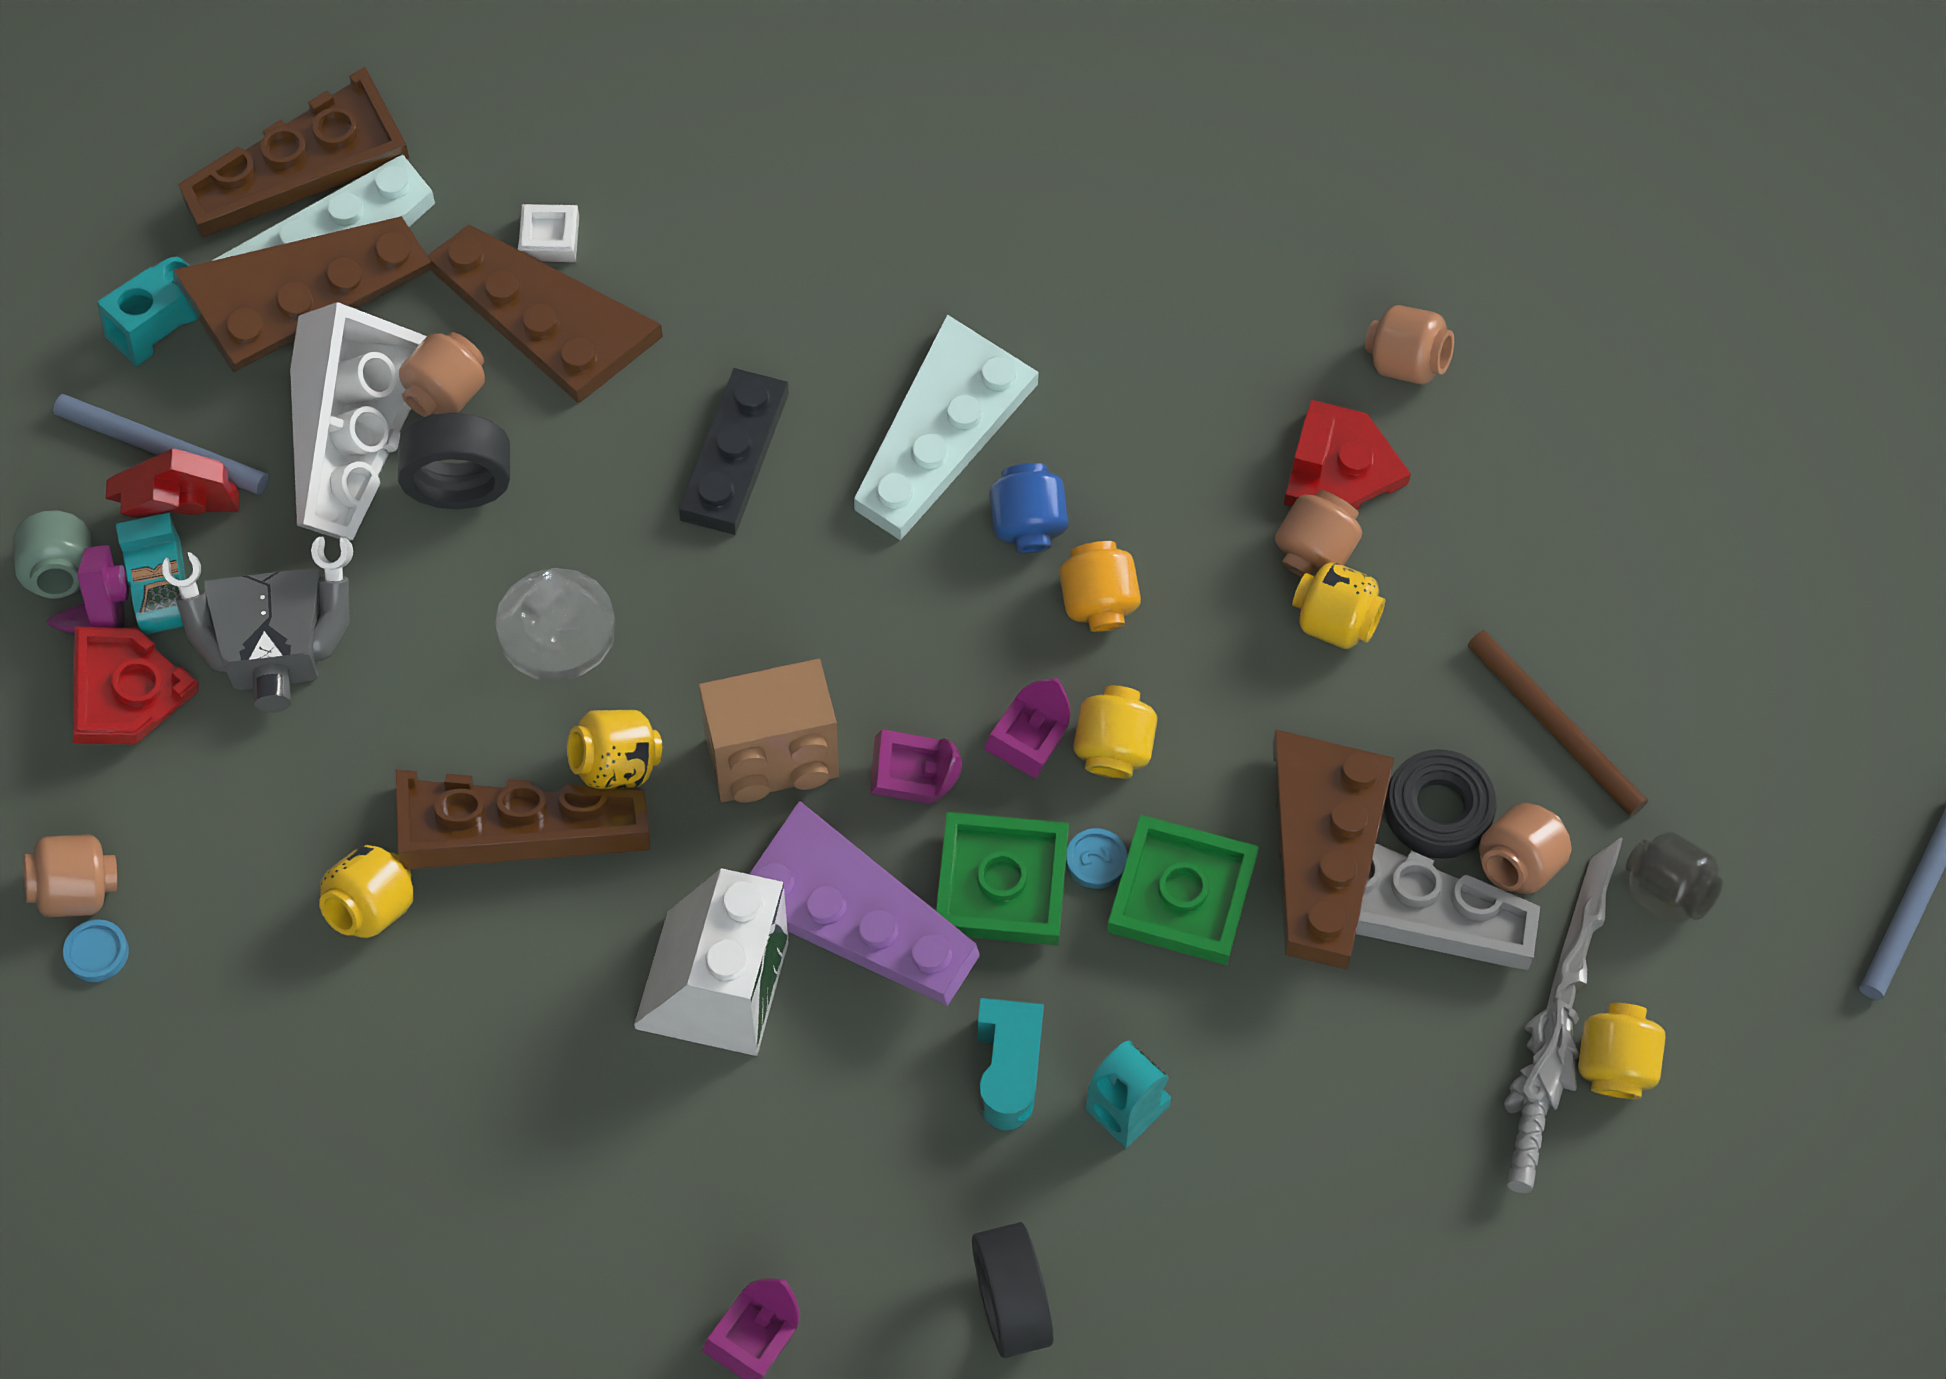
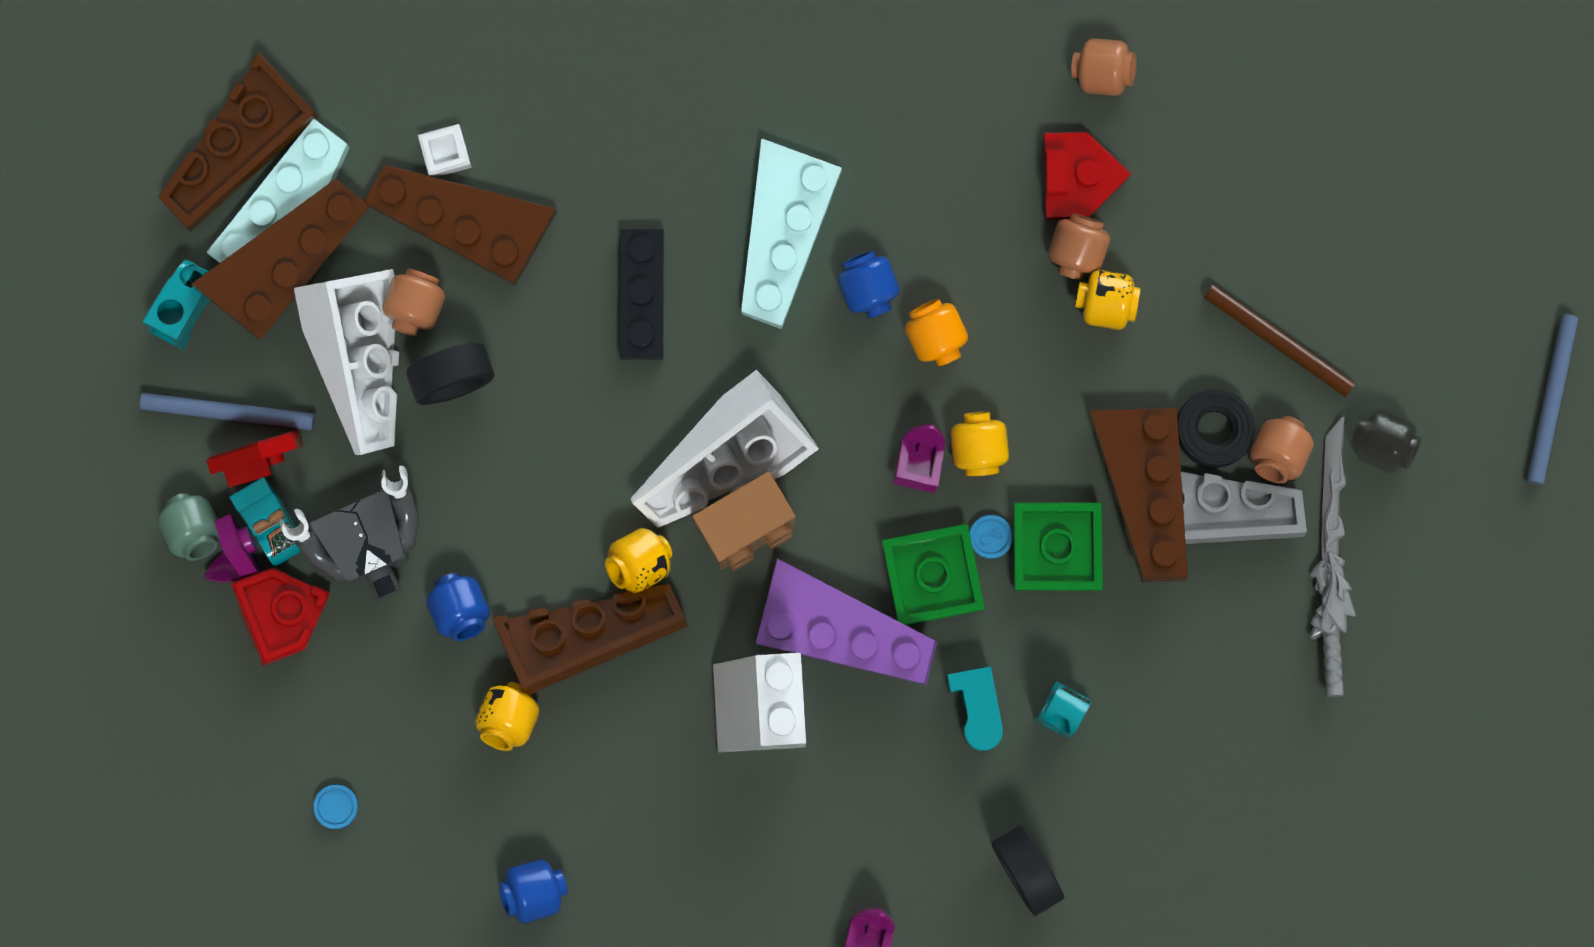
camera: 15 degrees left, 20 degrees up
(68, 875) = (299, 764): nougat head -> none
(312, 1125) = (532, 891): none -> blue head
(355, 741) = (458, 607): none -> blue head
(555, 624) = (562, 471): clear tile -> none
(802, 622) = (730, 446): none -> white wedge
(913, 767) = (848, 511): magenta plate -> none
(1621, 1051) = (1380, 581): yellow head -> none

